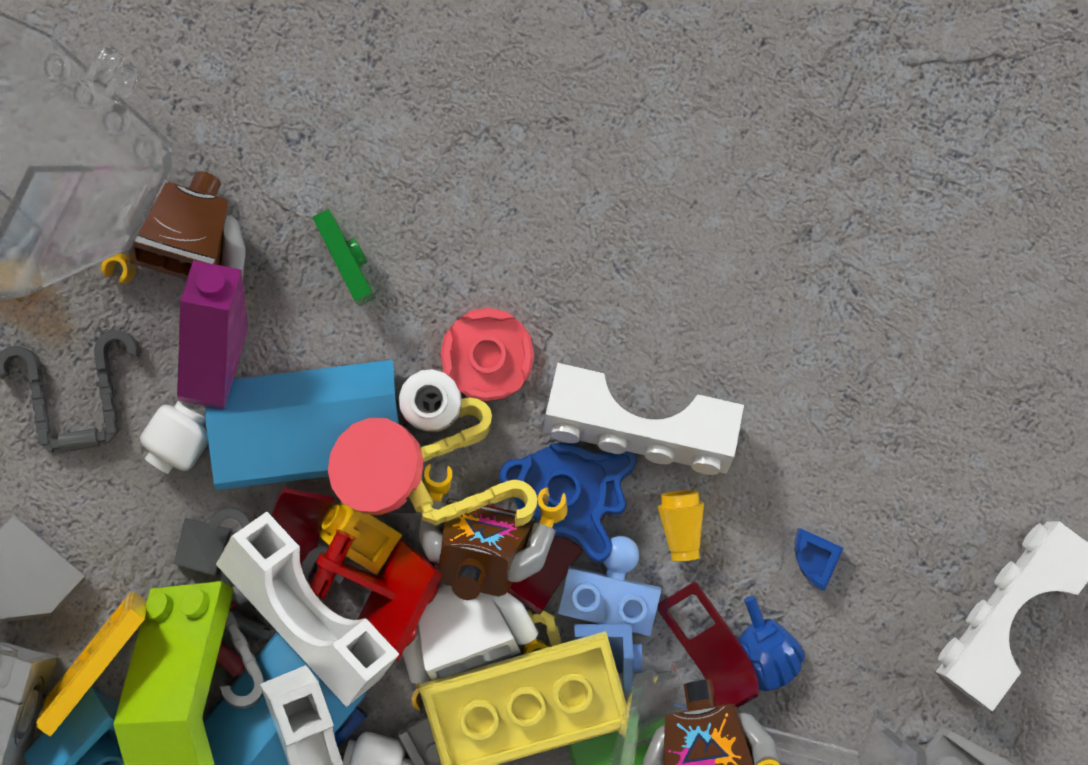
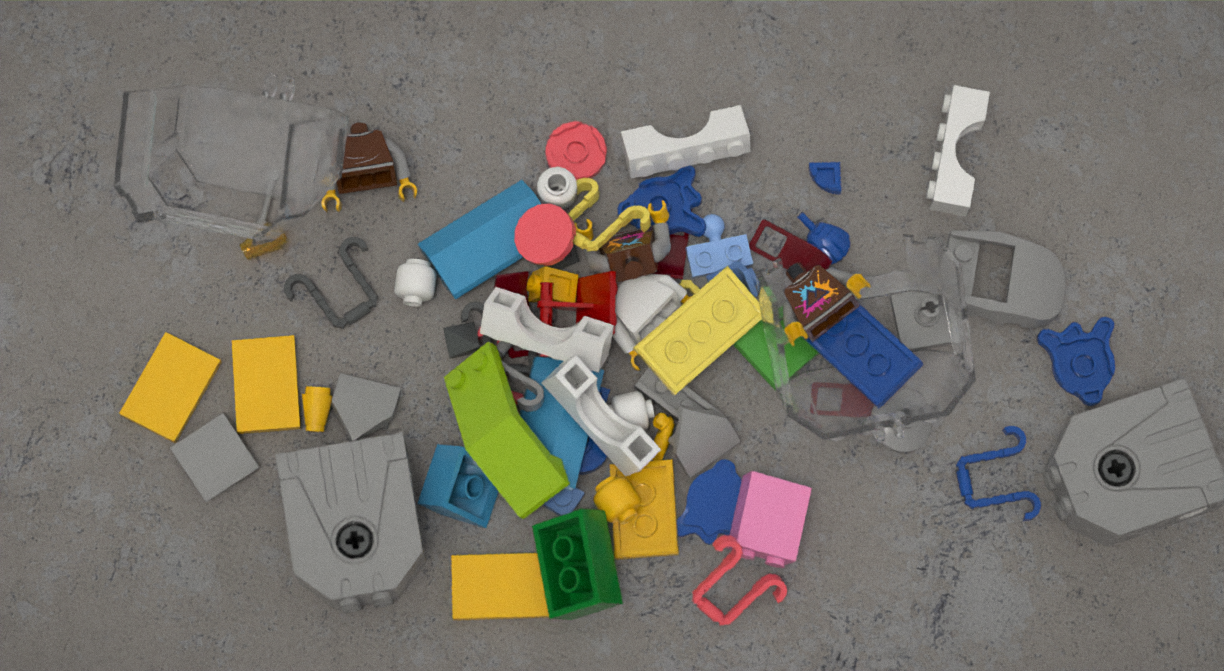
camera: 30 degrees left, 10 degrees down
(91, 662) = (433, 426): yellow tile -> none
(210, 334) = (411, 205): magenta slope -> none
(346, 256) = (464, 132): green plate -> none
(682, 523) = (739, 191): yellow cone -> none

